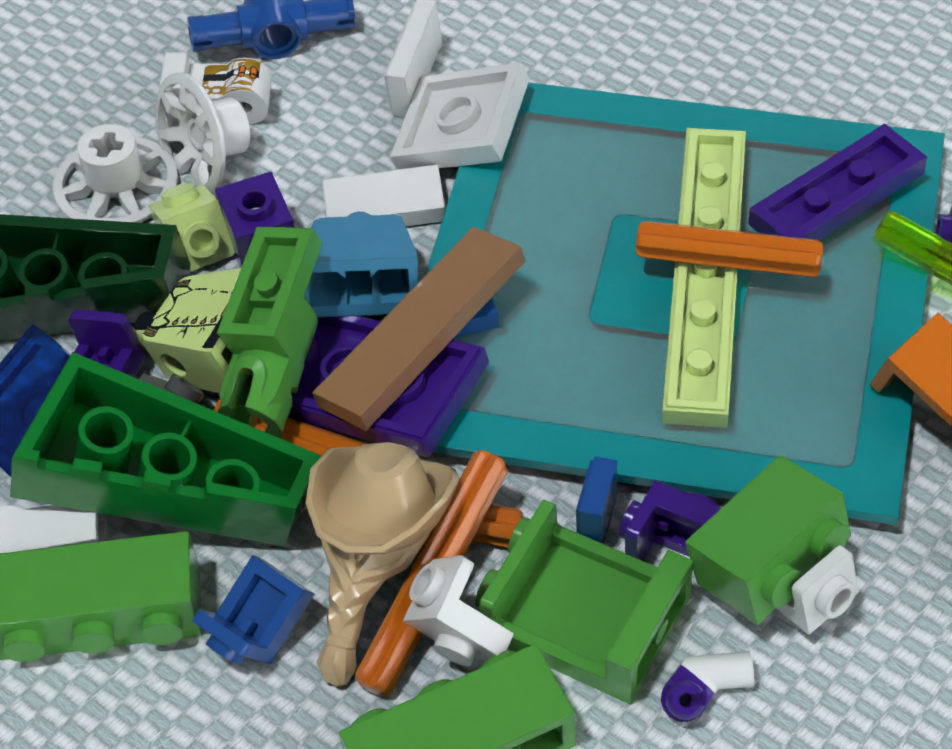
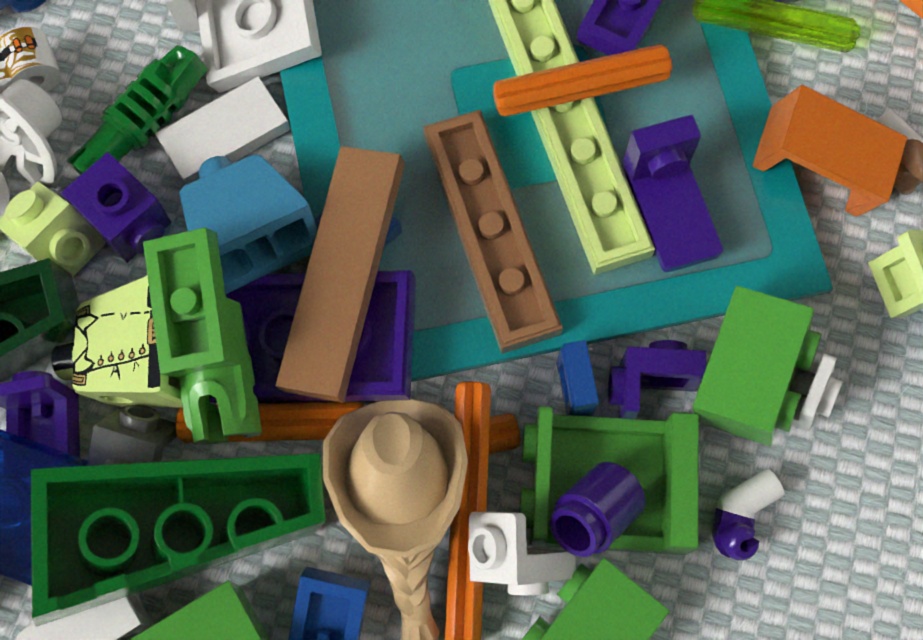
camera: 30 degrees left, 20 degrees up
(326, 154) = (142, 108): none -> green hinge
(552, 604) = (597, 509): none -> dark purple brick
(580, 353) = (492, 232): none -> medium nougat tile
(767, 367) = (669, 195): none -> dark purple bracket

